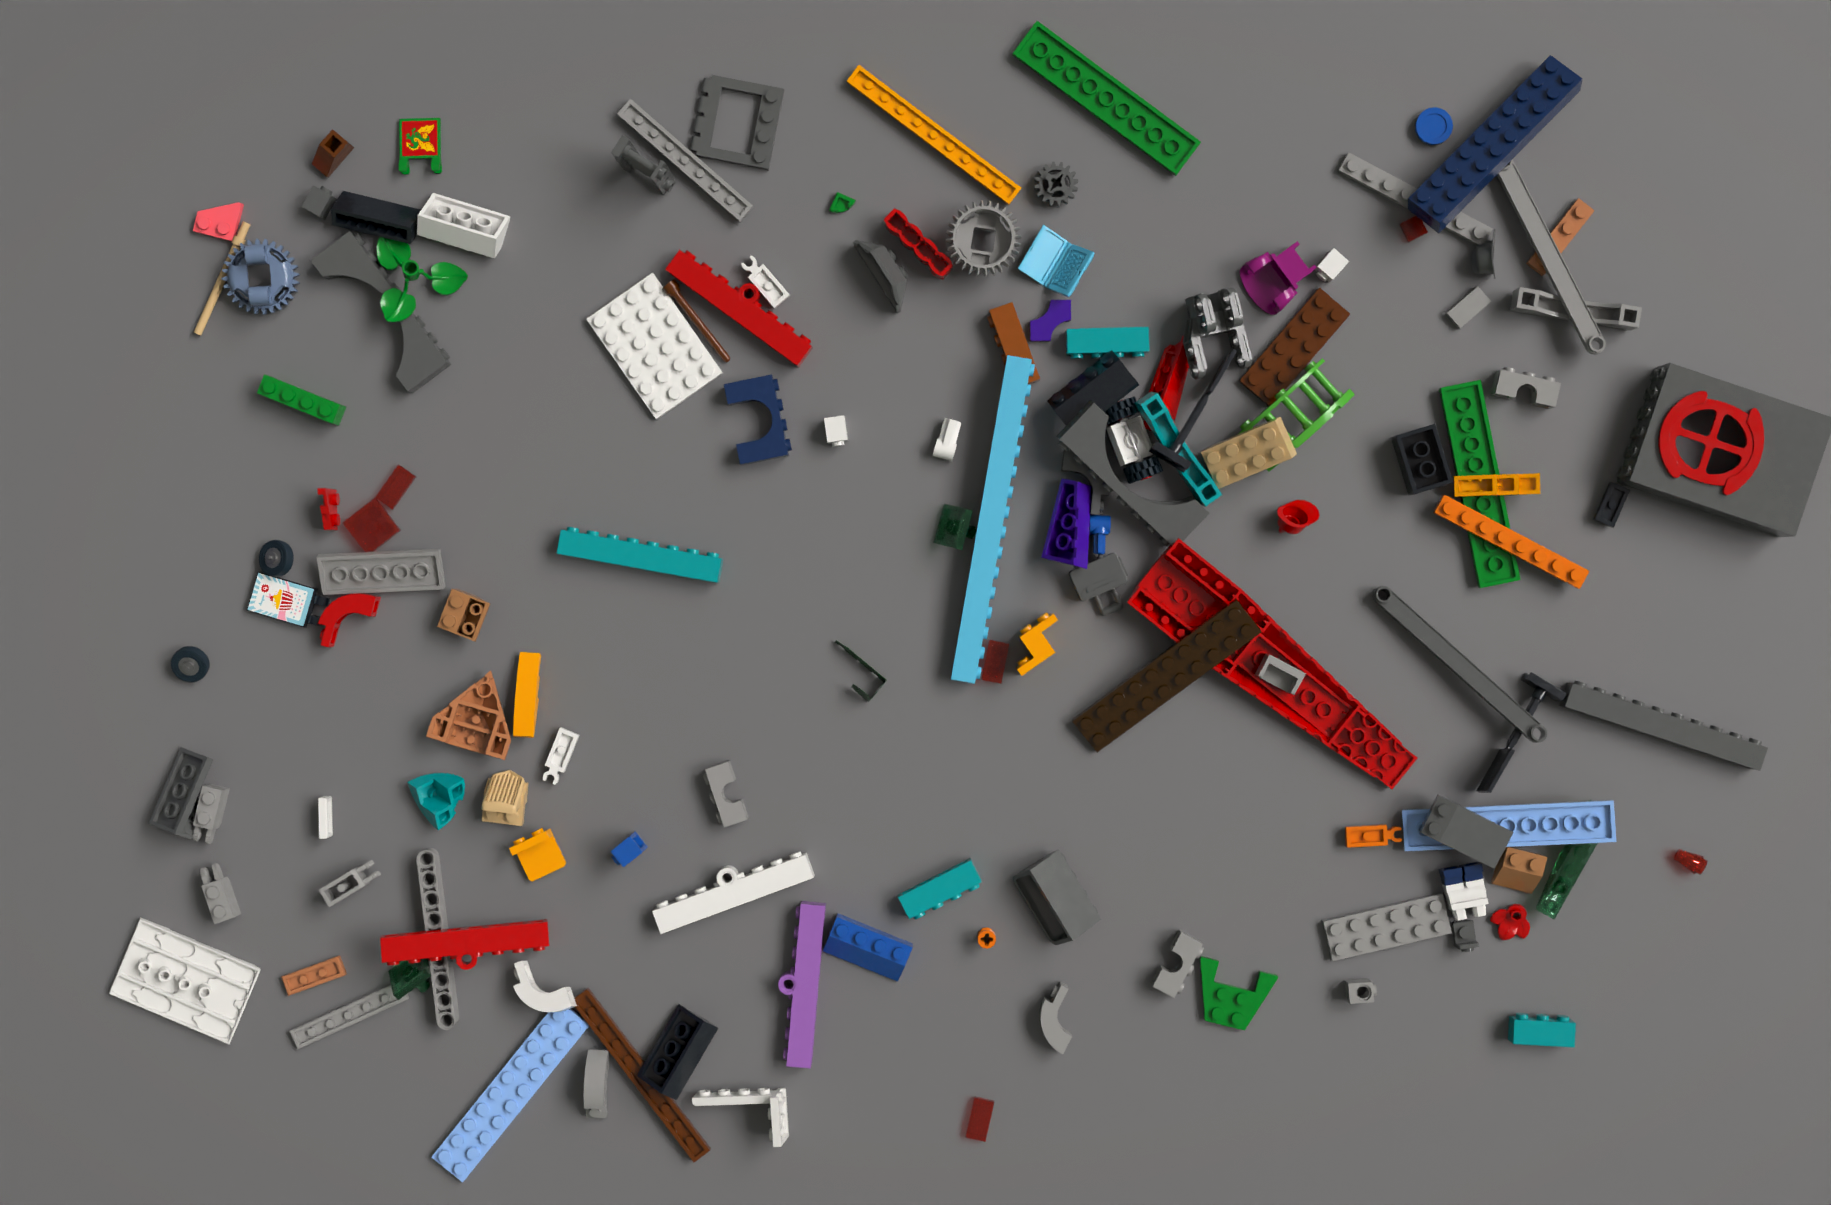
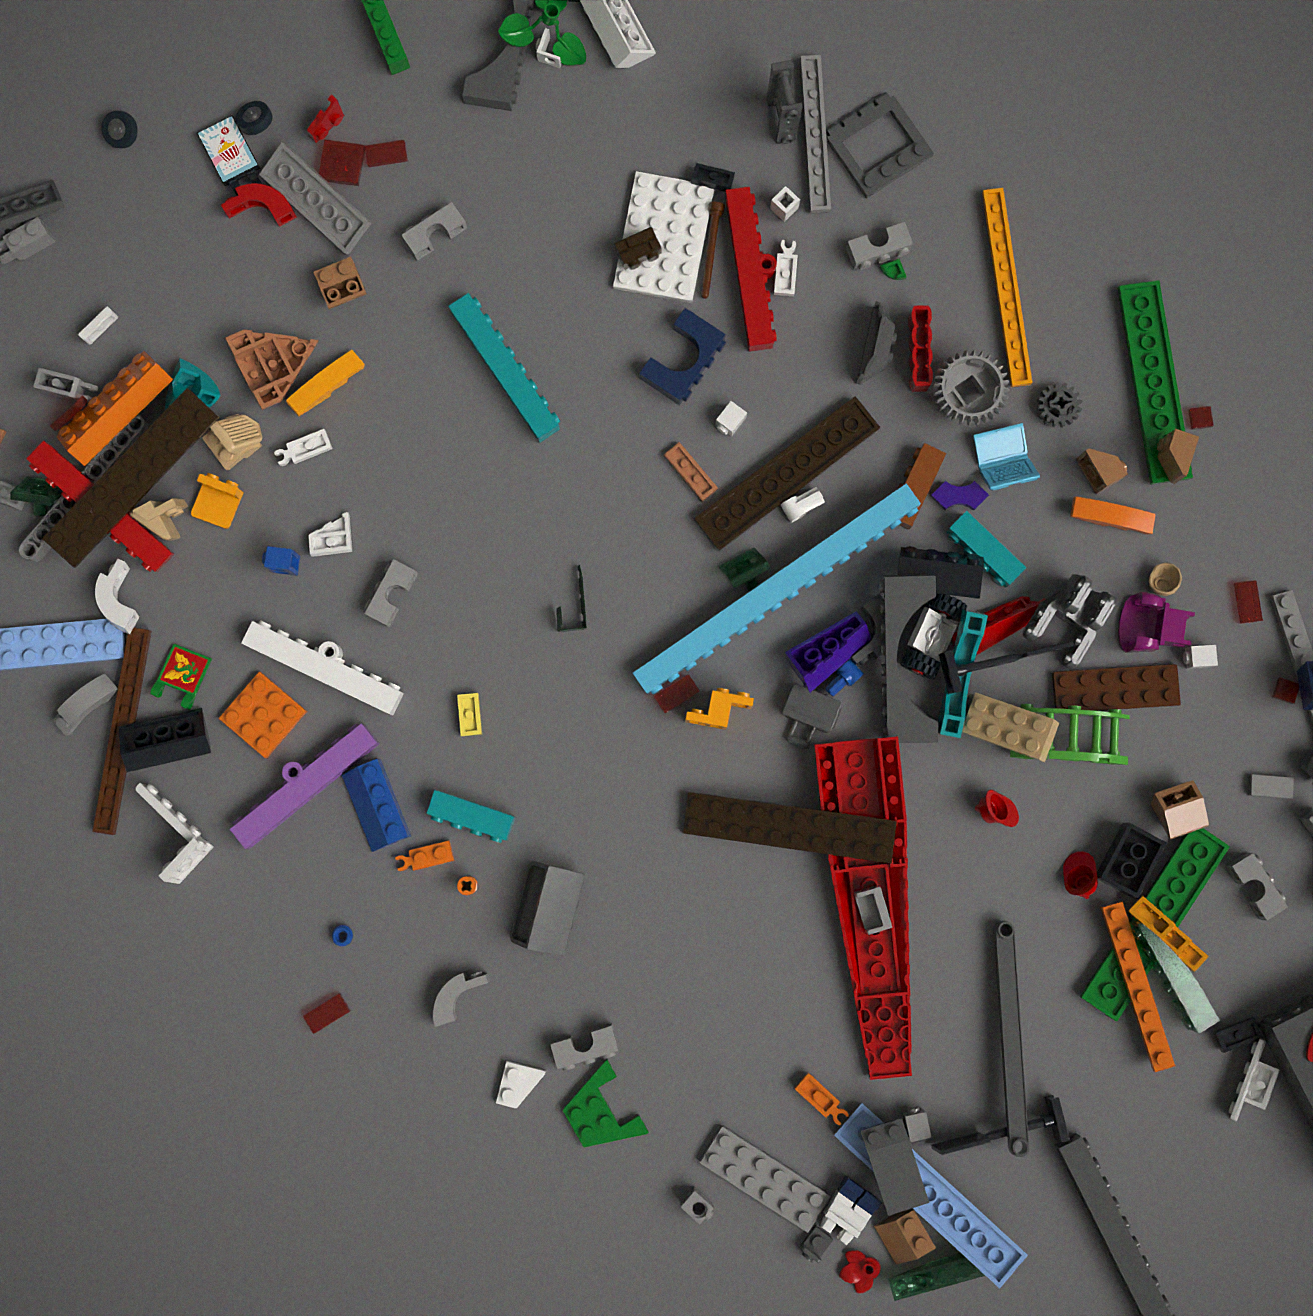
camera: 45 degrees right, 5 degrees down
(372, 899) = (69, 413): none -> clear red tile
(400, 863) = (113, 408): none -> orange brick
(425, 297) = (541, 47): none -> white bracket
(467, 900) = (130, 478): none -> dark brown plate
(482, 524) = (445, 219): none -> light grey arch
(511, 907) = (156, 517): none -> tan piece
(639, 993) = (184, 672): none -> flag
(645, 268) = (712, 177): none -> black plate
(645, 797) = (332, 538): none -> white wing
(647, 376) = (638, 248): none -> dark brown brick
(717, 236) = (784, 204): none -> white brick
(725, 965) = (263, 714): none -> orange plate
(808, 214) = (864, 254): none -> light grey arch
(845, 495) = (690, 471): none -> nougat tile
(867, 821) = (469, 714): none -> light yellow plate
(914, 428) = (787, 473): none -> dark brown plate
(936, 1063) = (337, 940): none -> blue plate
(938, 945) = (427, 856): none -> orange plate
(1133, 202) = (1101, 469): none -> medium nougat slope
(1156, 1033) = (517, 1083): none -> white wing
(1164, 90) = (1201, 417): none -> clear red tile
(1171, 226) = (1112, 515): none -> orange slope
(1174, 139) = (1176, 453): none -> medium nougat slope
(1253, 236) = (1165, 579): none -> tan hair
(1326, 191) = (1248, 602): none -> clear red tile
(1397, 504) = (1080, 874): none -> red piece
(1422, 389) = (1180, 809): none -> medium nougat slope
(1453, 787) = (916, 1124): none -> light grey brick
(1535, 511) = (1177, 980): none -> clear green slope
(1656, 524) = (1257, 1084): none -> white bracket

